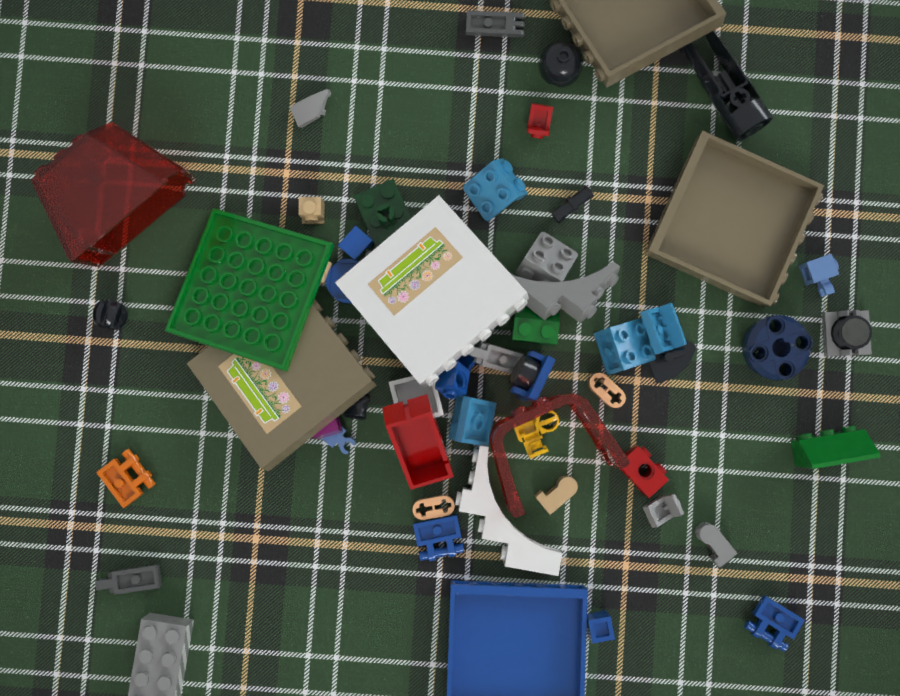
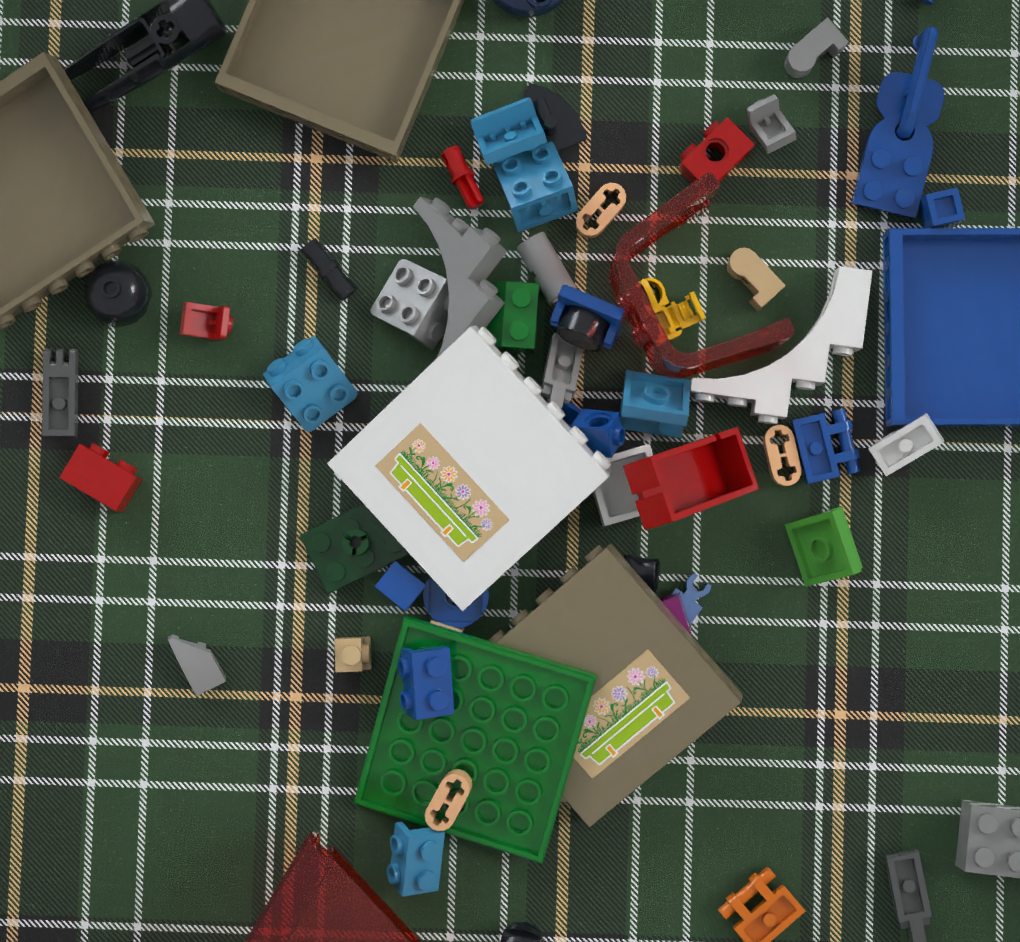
camera: 85 degrees left, 0 degrees up
(172, 247) = (415, 859): none -> dark azure bracket
(207, 272) = (441, 796): none -> light nougat beam
(287, 256) = (426, 682): none -> blue bracket
(369, 533) = (824, 547): none -> bright green bracket
(436, 593) = (906, 444): none -> white plate
(437, 49) = (101, 477): none -> red brick
(570, 350) = (545, 263): none -> light grey pin
(629, 597) = (895, 169): none -> blue plate
(632, 297) = (462, 177): none -> red axle

